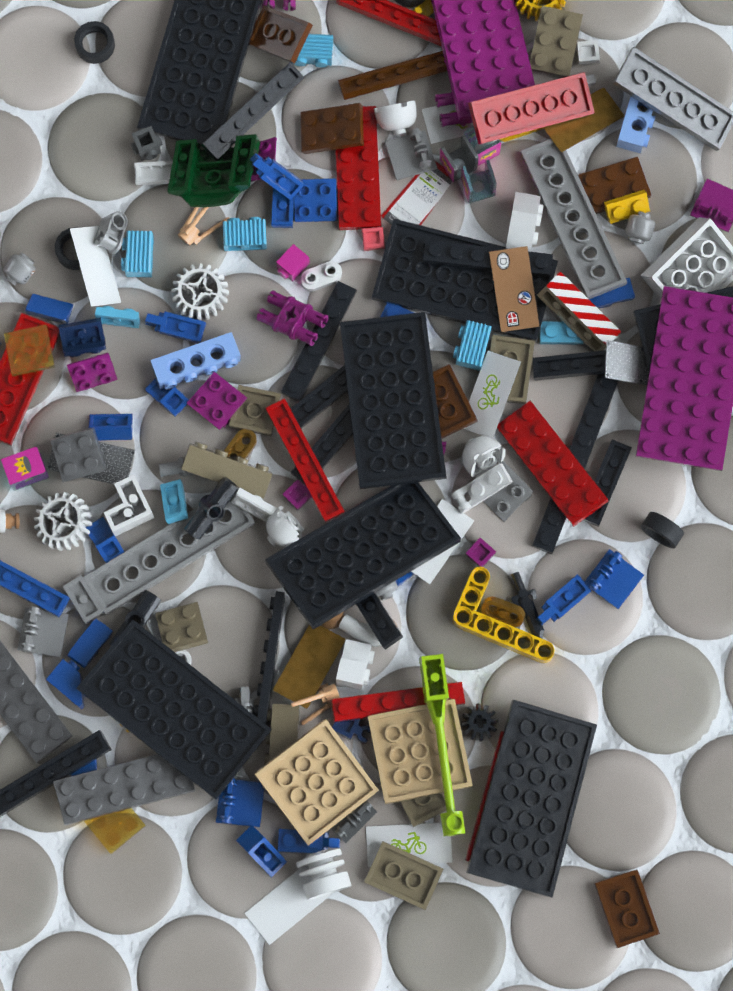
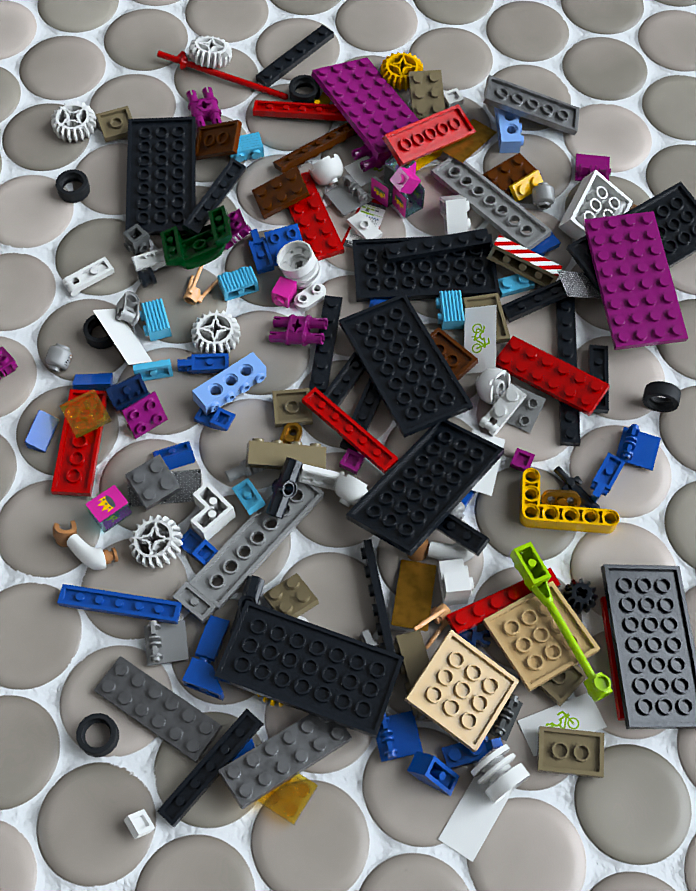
camera: 20 degrees left, 15 degrees down
(80, 171) = (88, 276): none -> white plate
(144, 195) = (146, 277): none -> black wheel
(217, 401) = (258, 408): magenta hinge -> none
(277, 176) = (251, 228): blue hinge -> none
(313, 228) = (299, 263): none -> white wheel
(373, 238) = (341, 260): coral tile -> none
(415, 203) = (364, 226): none -> white plate
(476, 167) = (405, 180): none -> dark pink brick
(514, 289) = (467, 259): medium nougat sticker -> none

